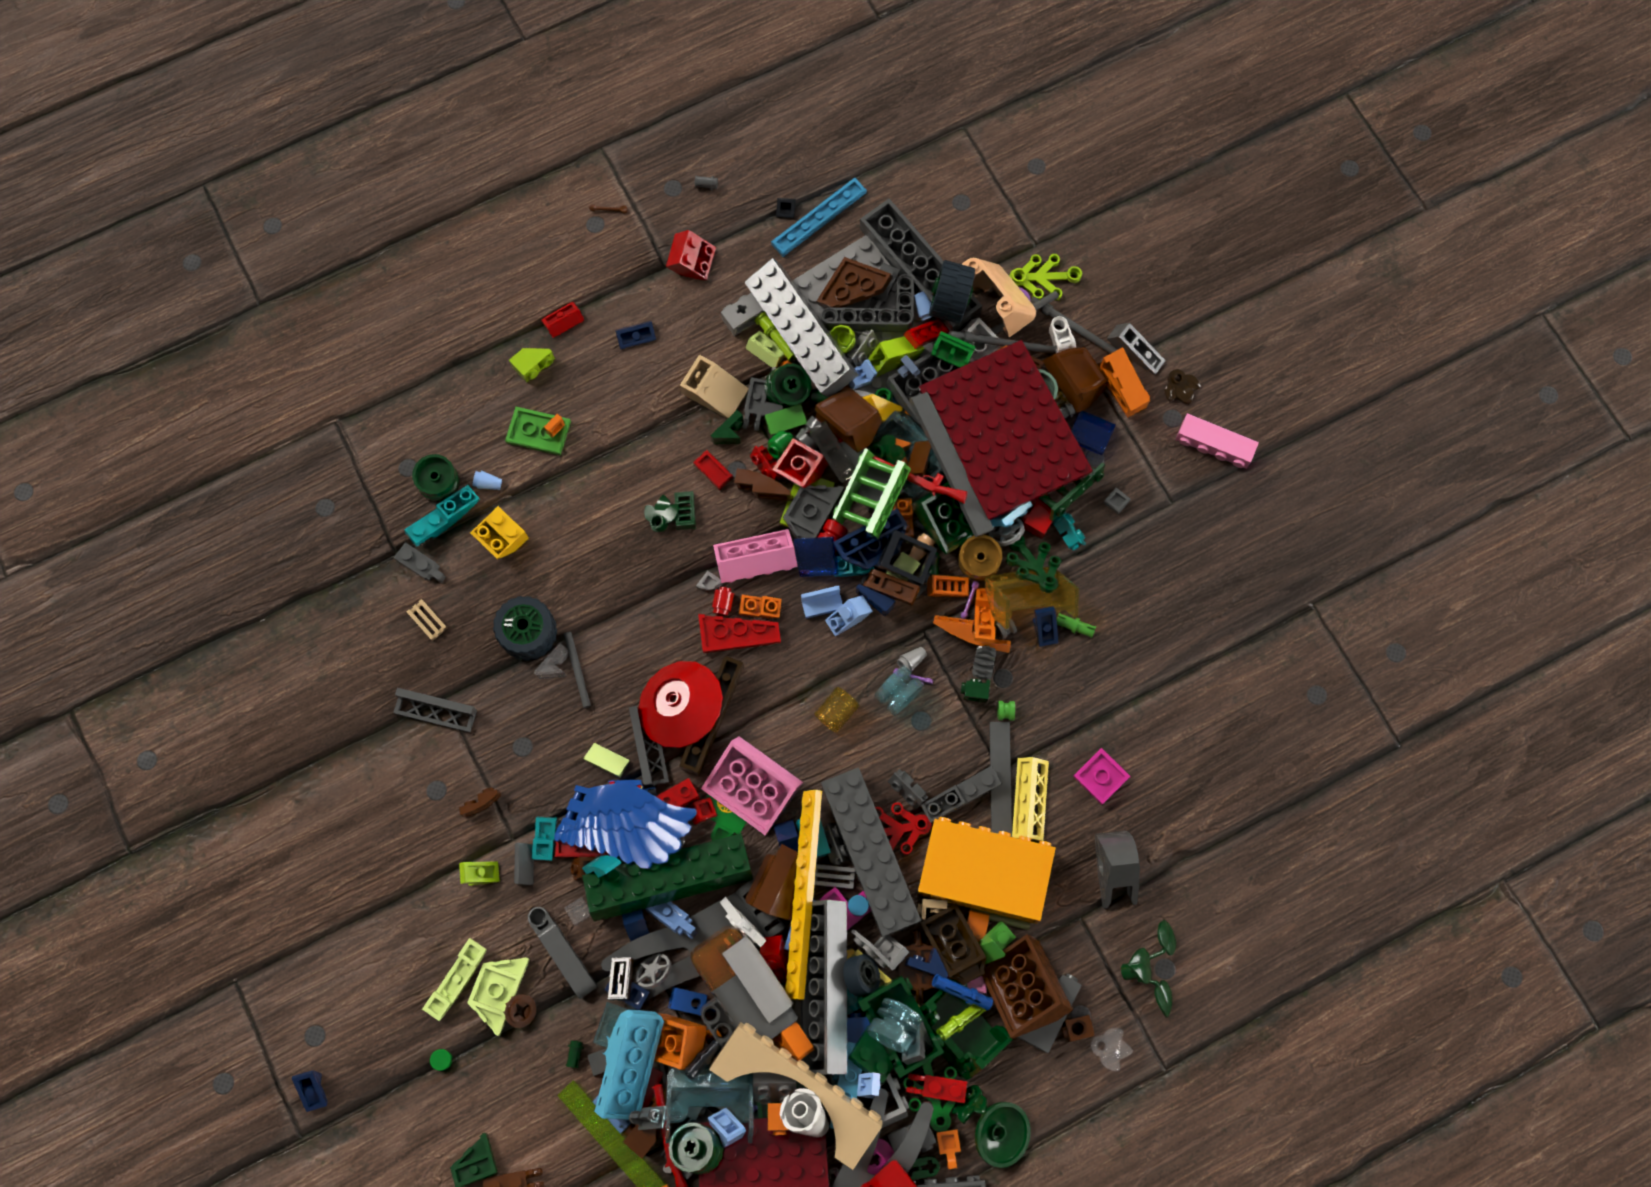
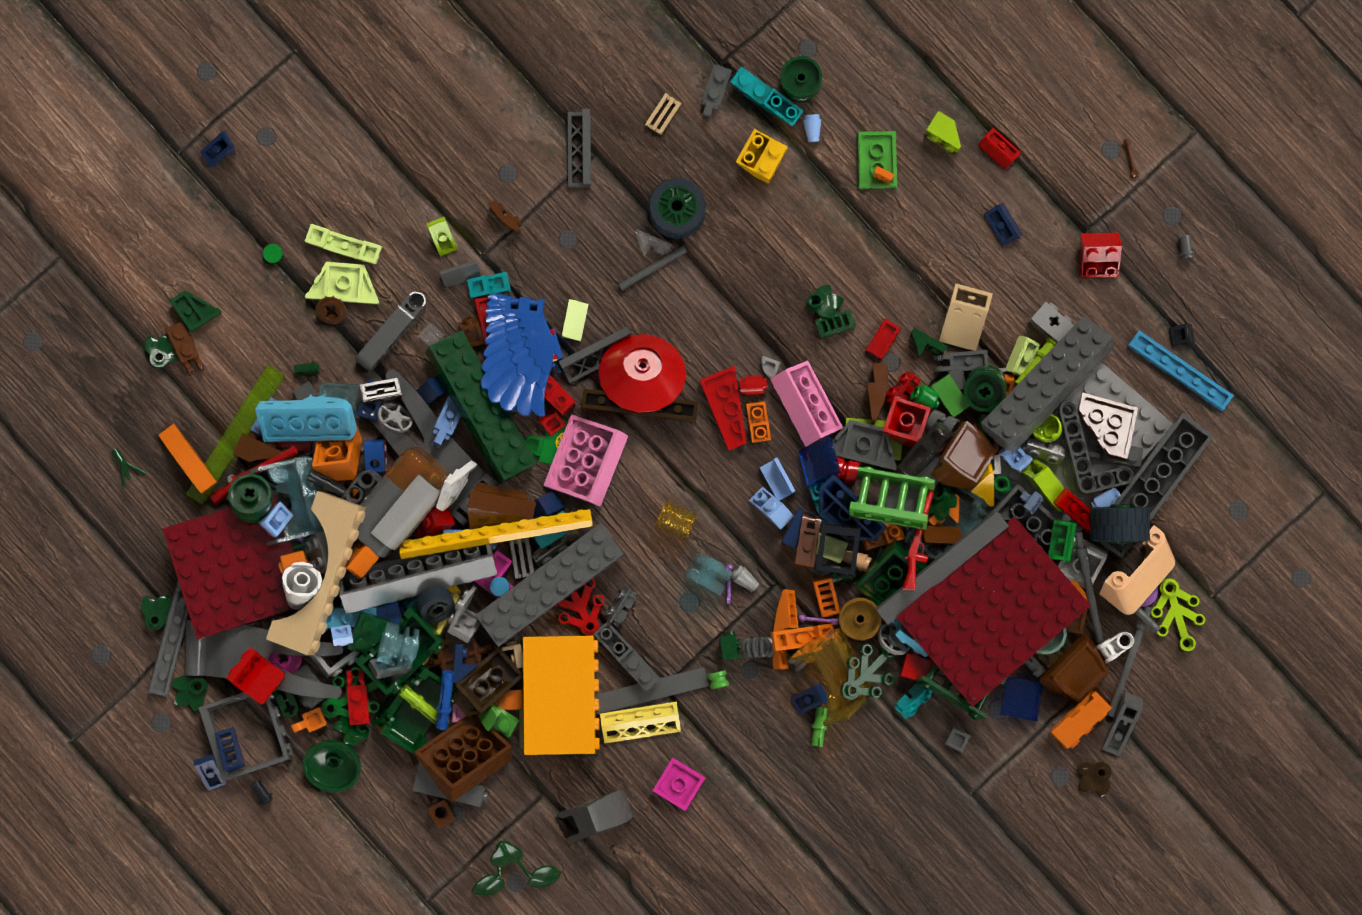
camera: 75 degrees right, 10 degrees up
(601, 865) = (474, 344): teal slope -> none
(649, 1118) = (266, 450): dark grey hinge -> none
(1114, 1048) = (432, 850): clear plate -> none
(1216, 441) = (1045, 824): bright pink brick -> none

